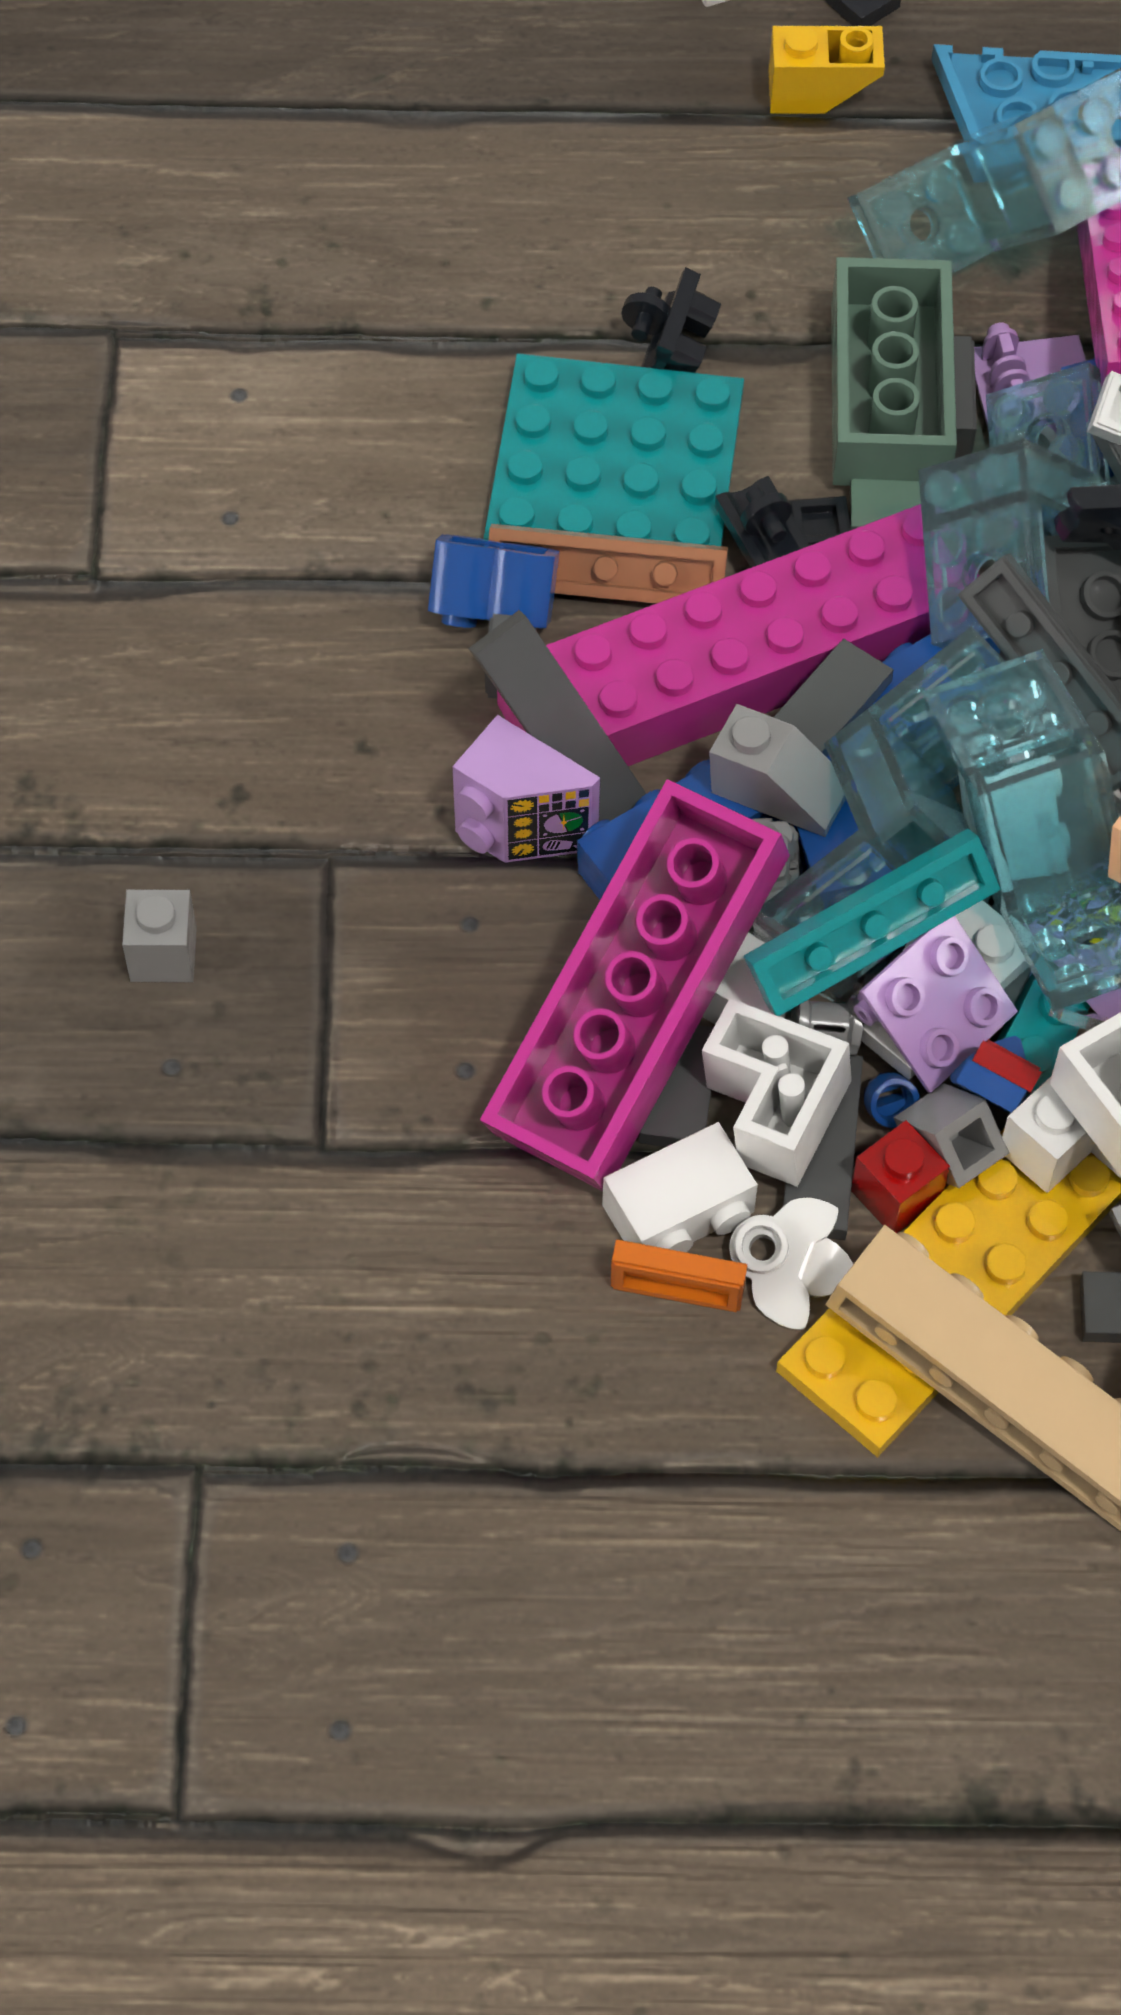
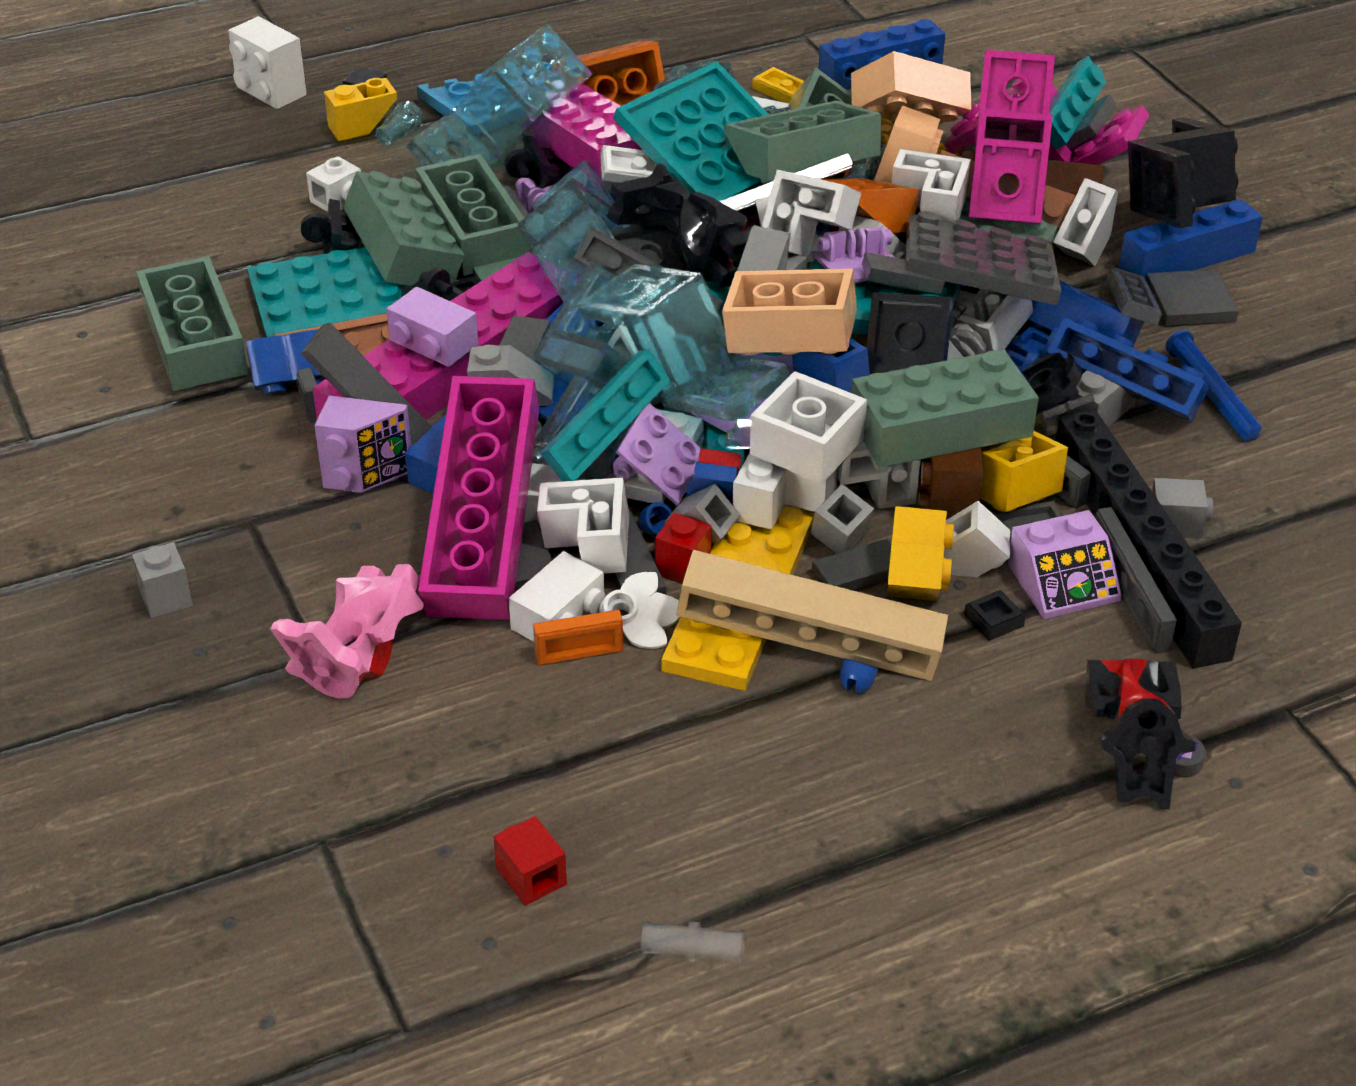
camera: 25 degrees left, 20 degrees down
(385, 451) = (192, 323): none -> sand green brick
(399, 1116) = (364, 612): none -> bright pink hips
(440, 1632) = (530, 860): none -> red brick
(594, 1862) = (693, 942): none -> clear pin
(705, 627) = (432, 326): none -> lavender brick
(714, 229) = (330, 181): none -> white brick
(767, 376) = (401, 228): none -> sand green brick
(876, 116) = (401, 121): none -> clear light blue cone
(1035, 289) = (534, 163): none -> black hips
(1044, 1507) = (861, 673): none -> blue hinge

